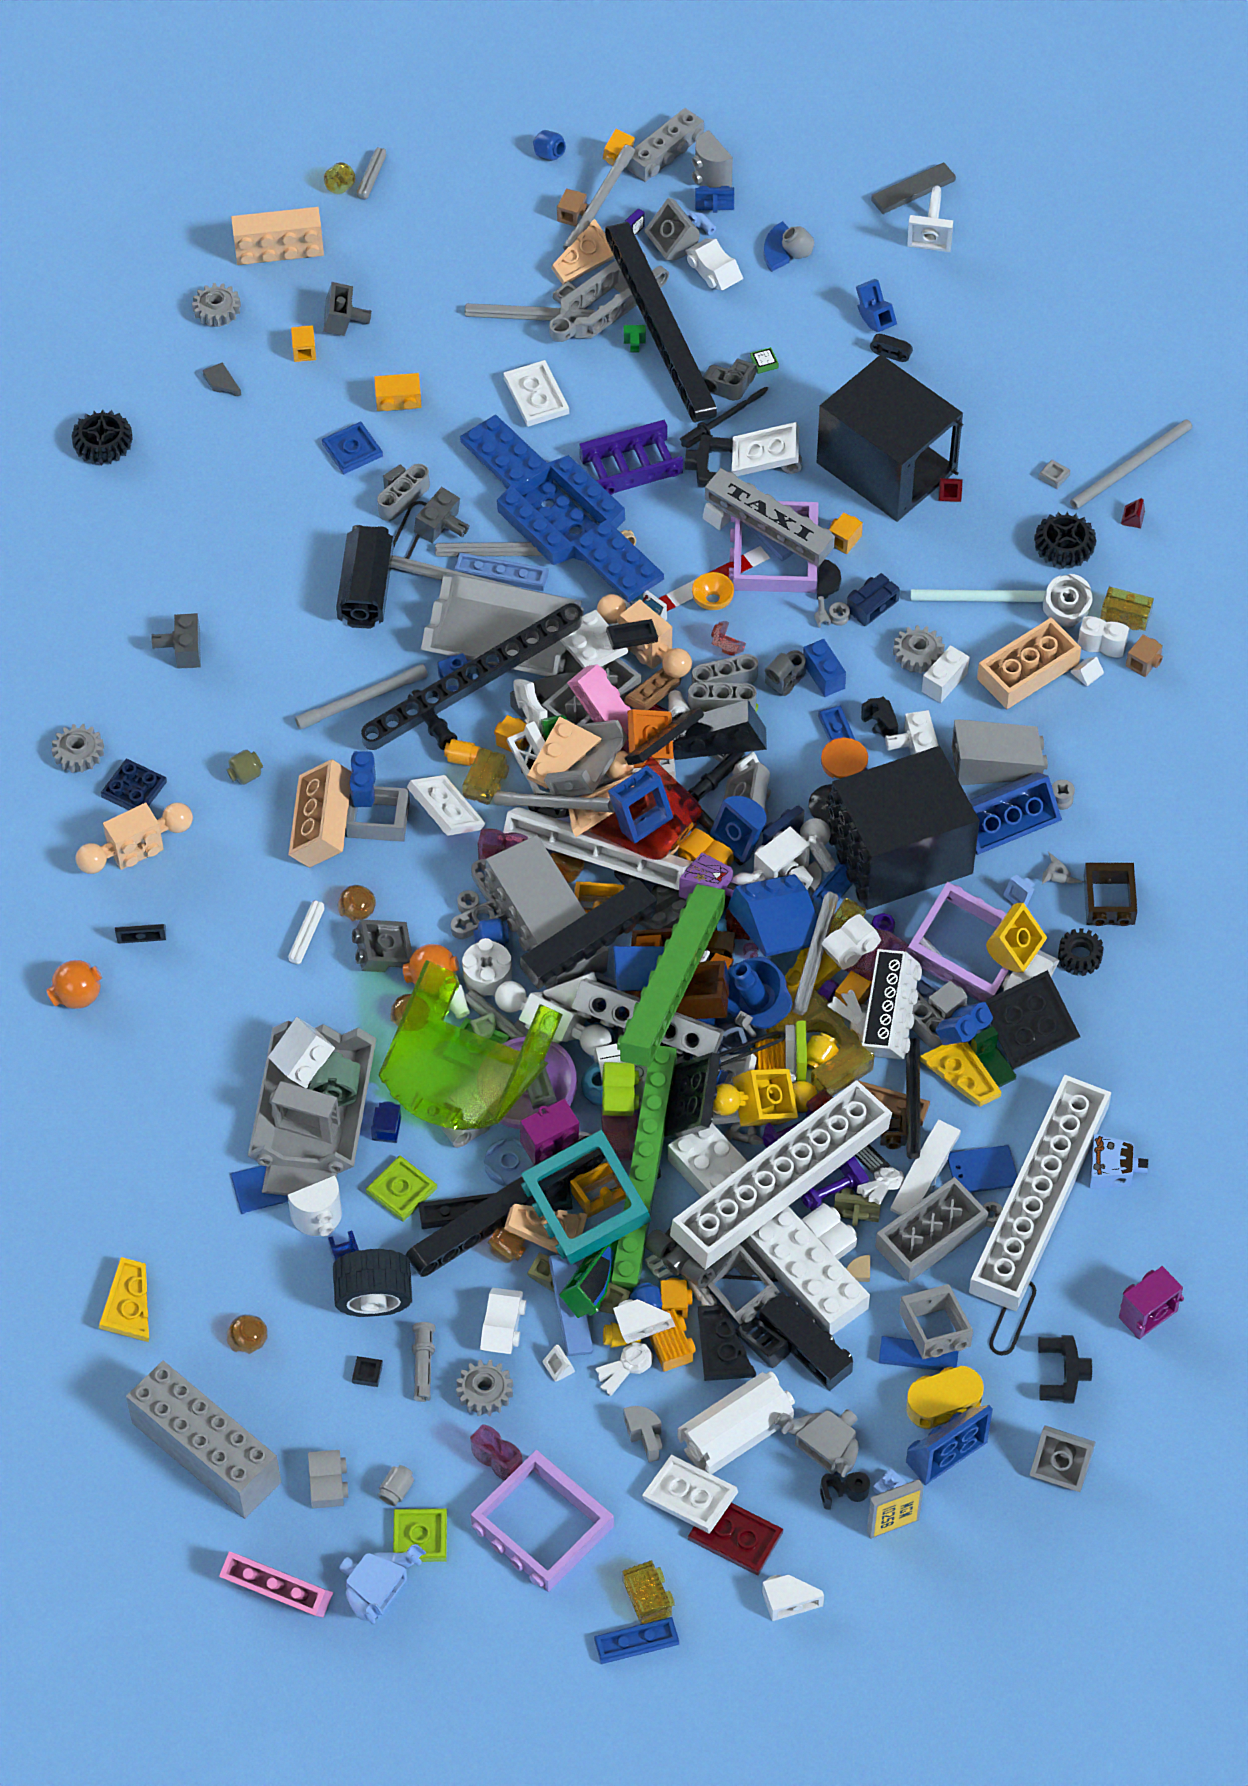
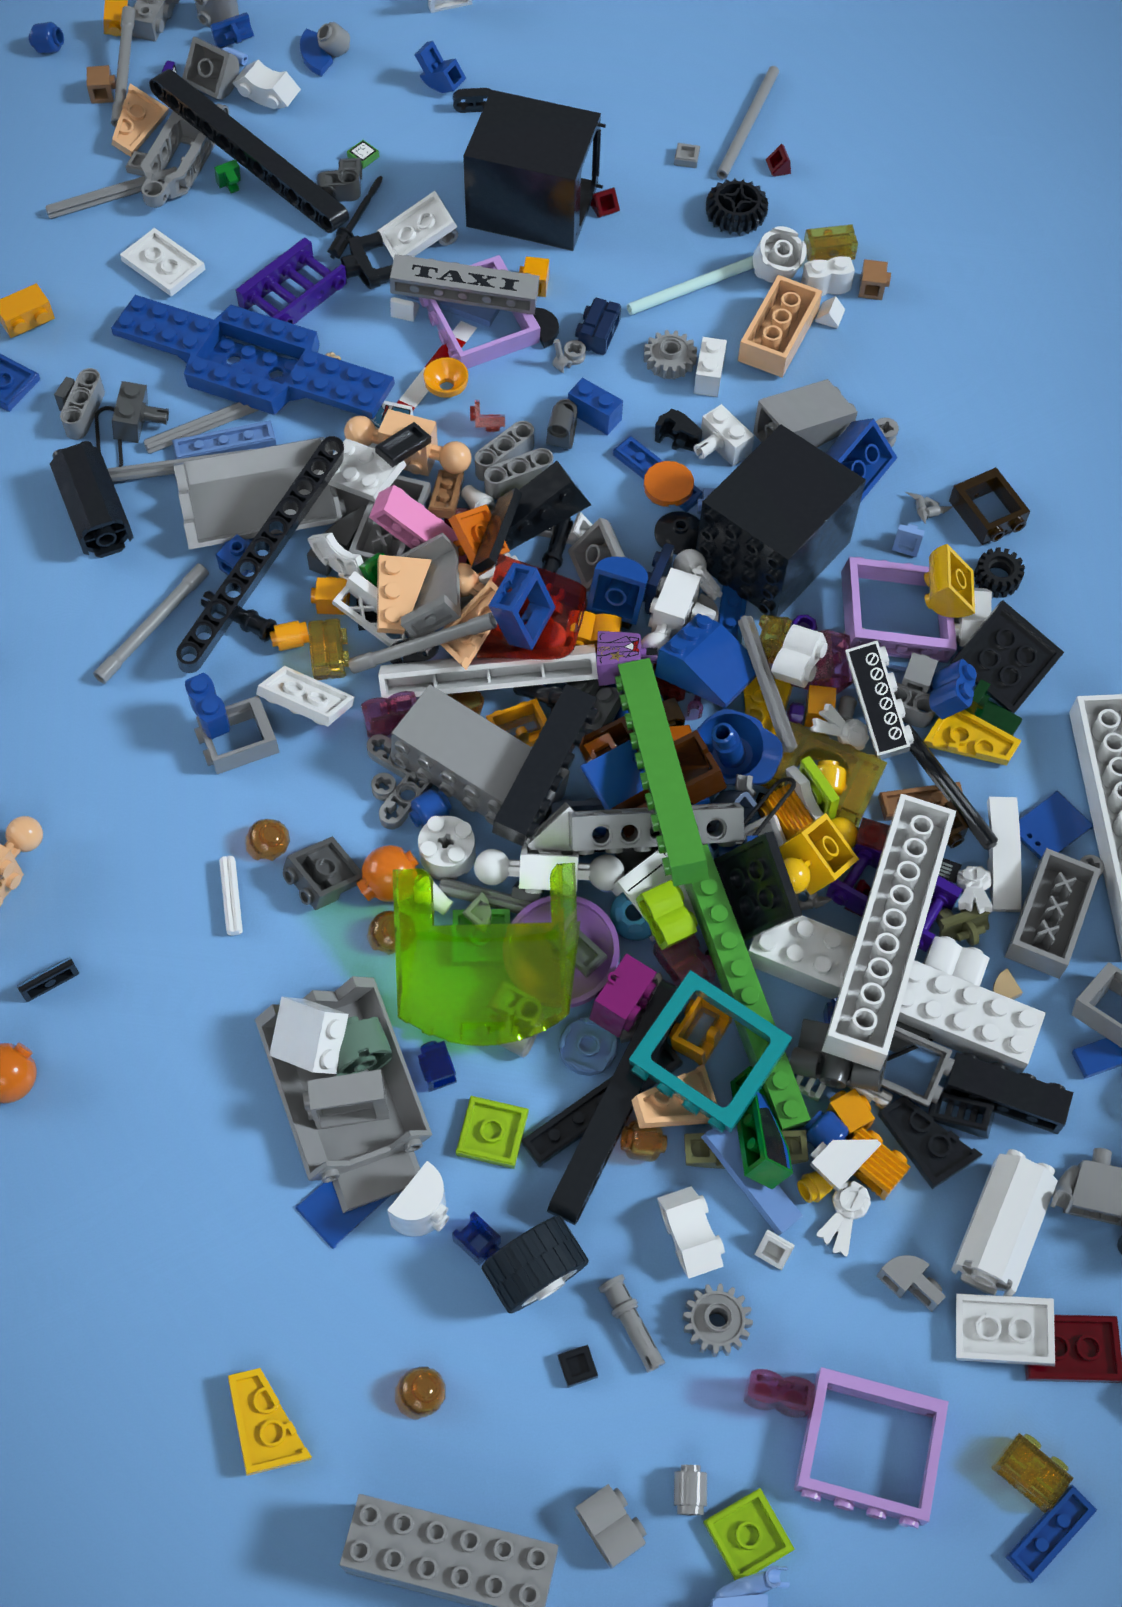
camera: 30 degrees left, 5 degrees up
(244, 767) = (68, 747): olive head -> none
(320, 813) = (179, 761): light nougat brick -> none

